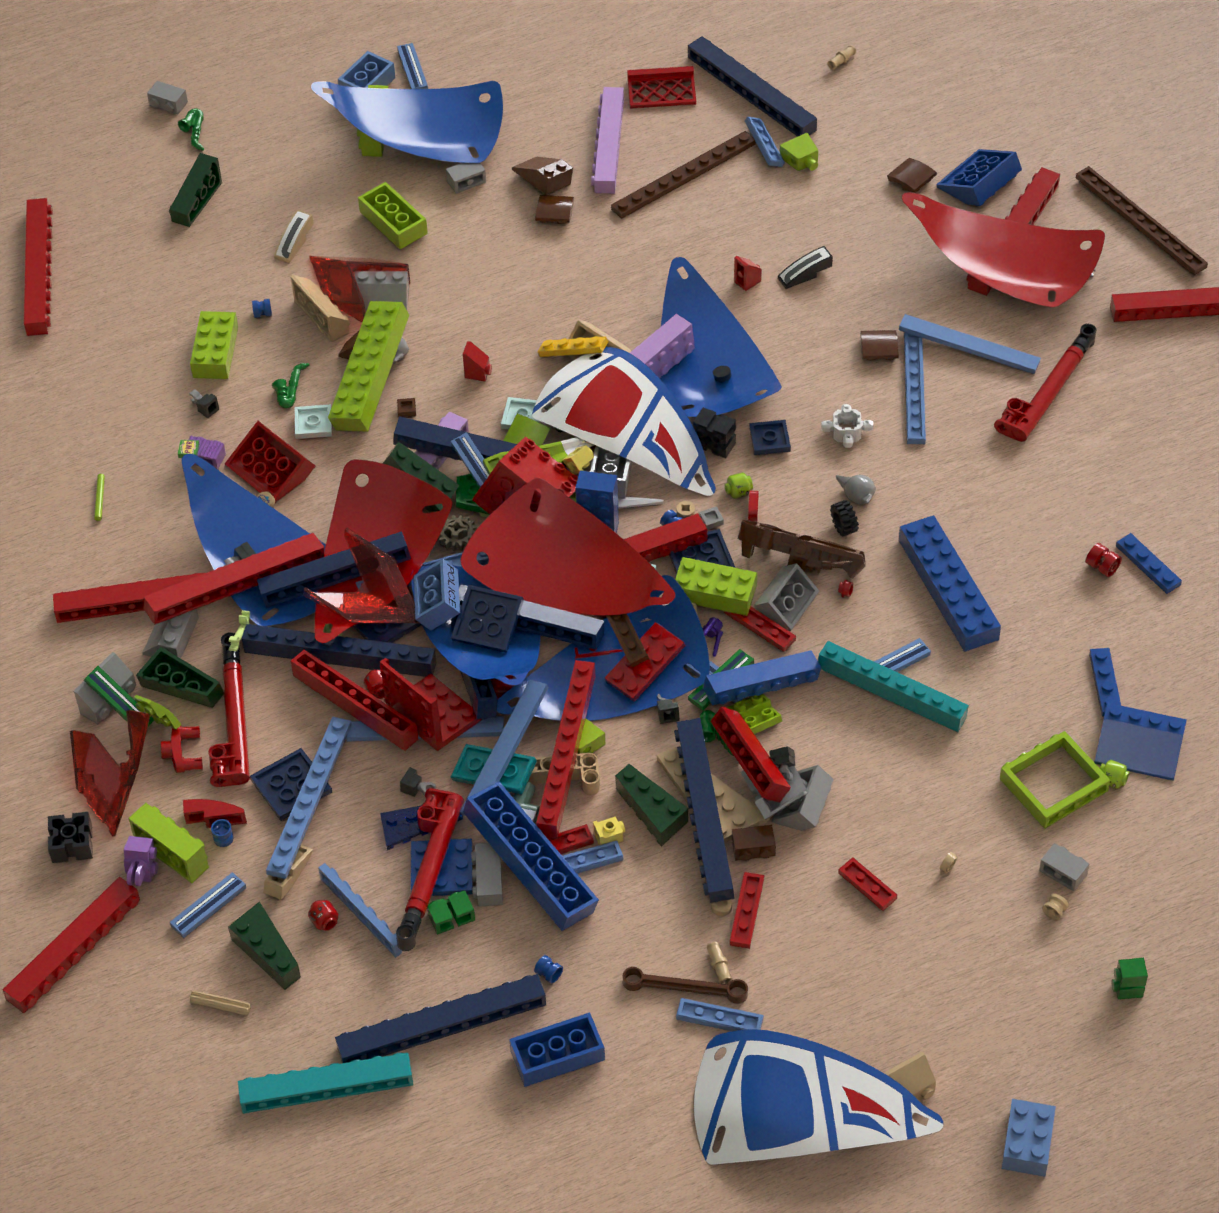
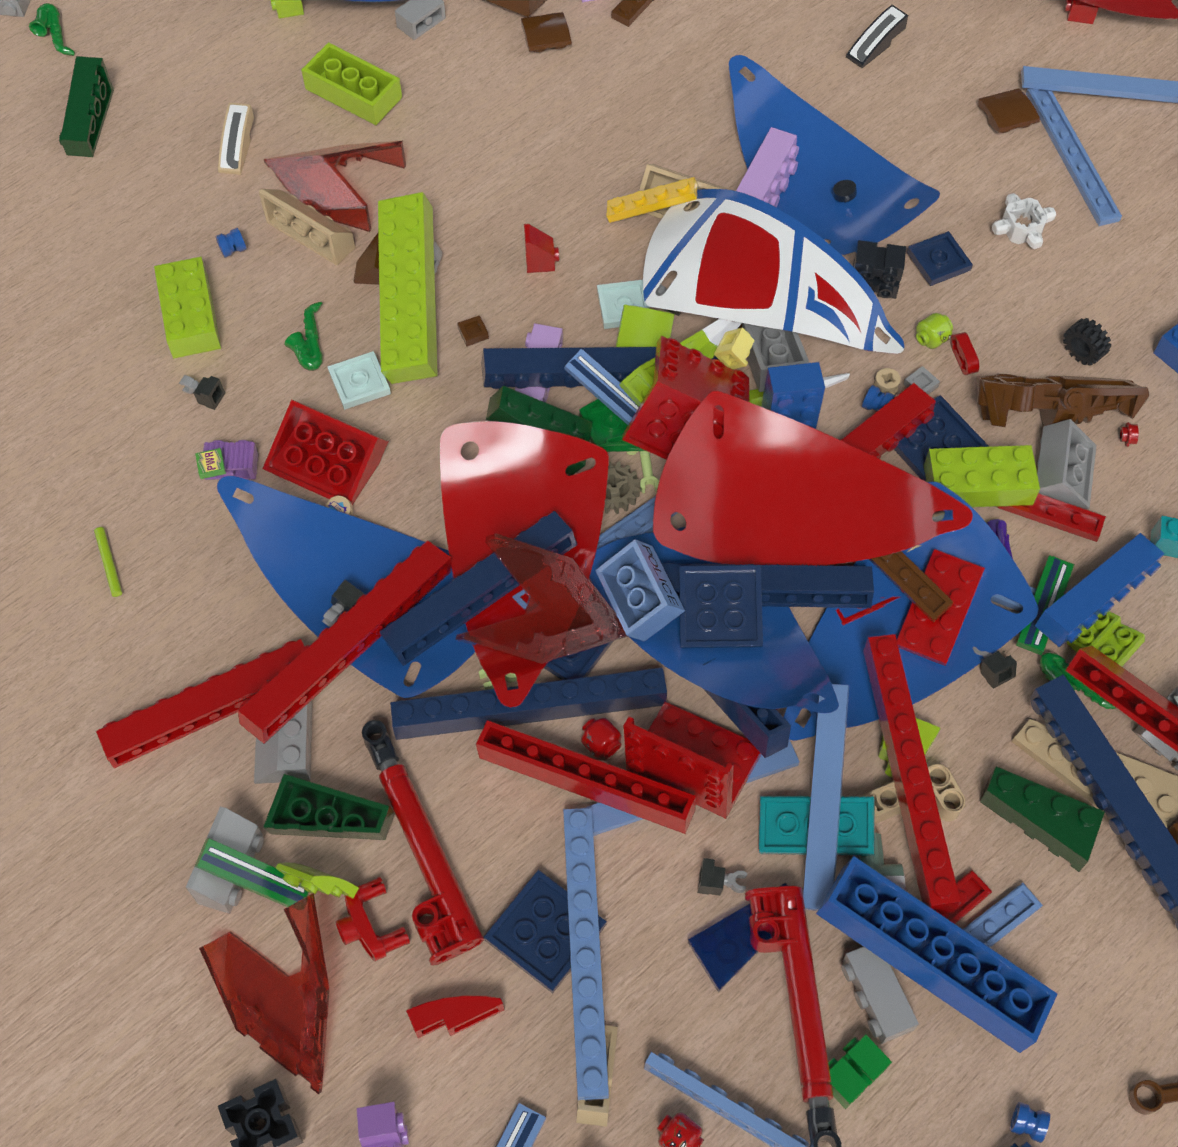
camera: 20 degrees left, 10 degrees up
(173, 843) = (412, 1088): lime brick -> none
(222, 833) = (477, 1037): blue wheel -> none
(243, 620) = (386, 719): yellowish green bar -> none
(383, 286) = (379, 178): light grey slope -> none
(456, 868) = (837, 1001): blue plate -> none
(608, 830) = (1001, 879): light yellow brick -> none
(746, 273) = (813, 59): red slope -> none
(857, 488) = (1078, 299): light grey piece -> none

